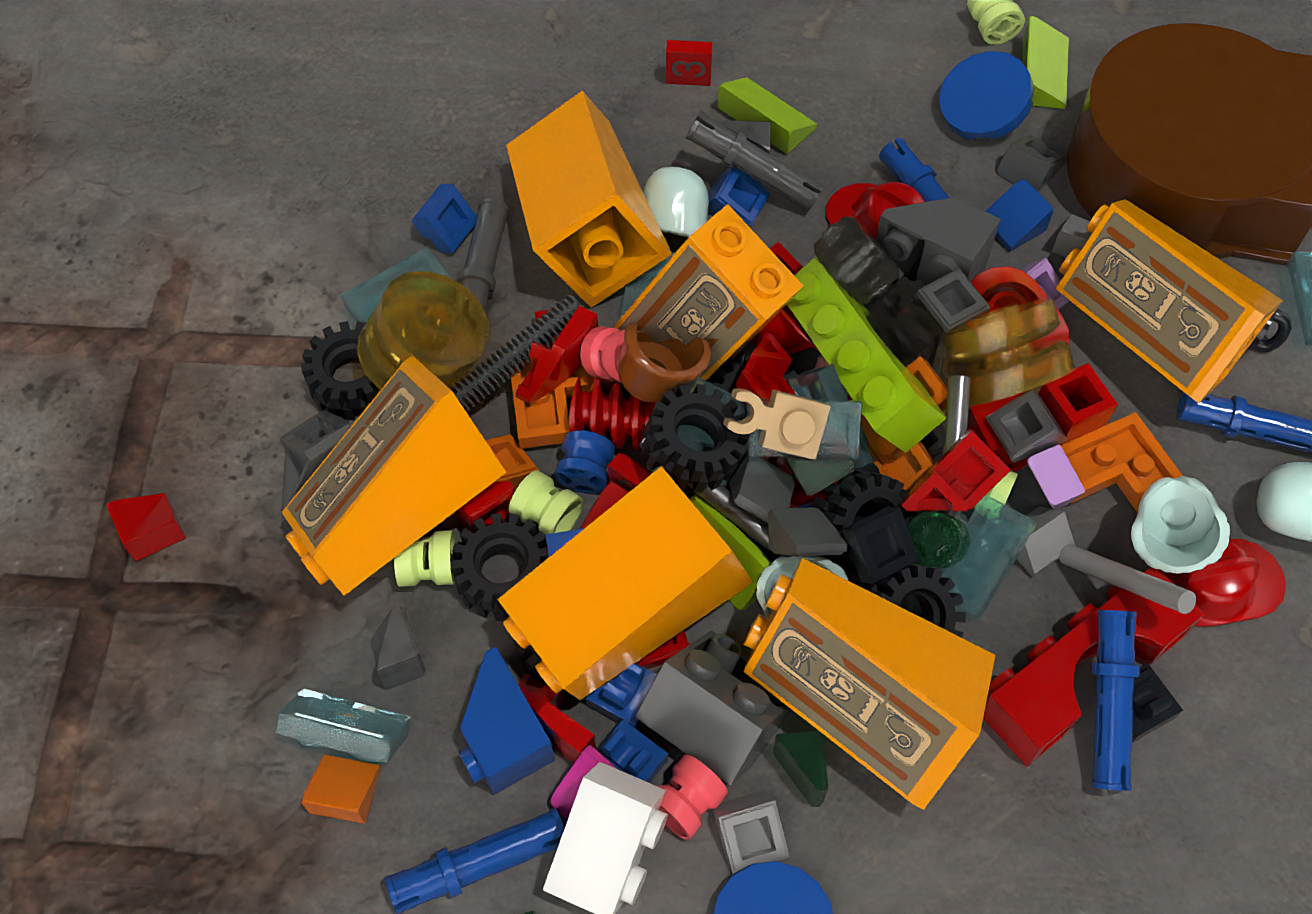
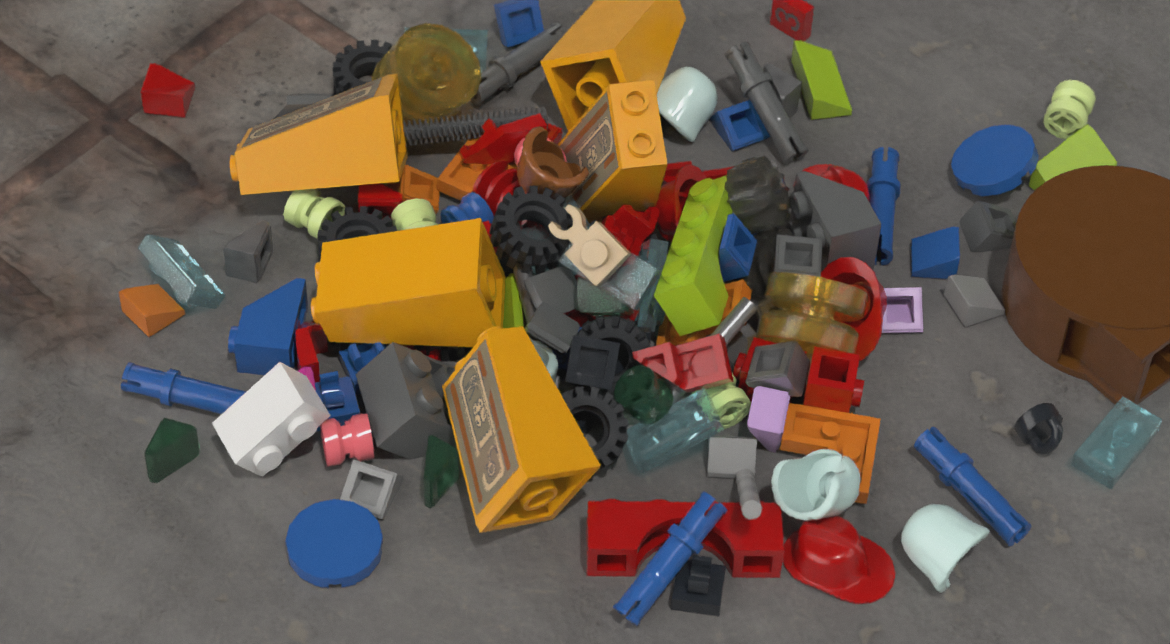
camera: 35 degrees right, 10 degrees down
(890, 327) = (736, 249): none -> blue slope
(1165, 297) = (970, 359): slope -> none

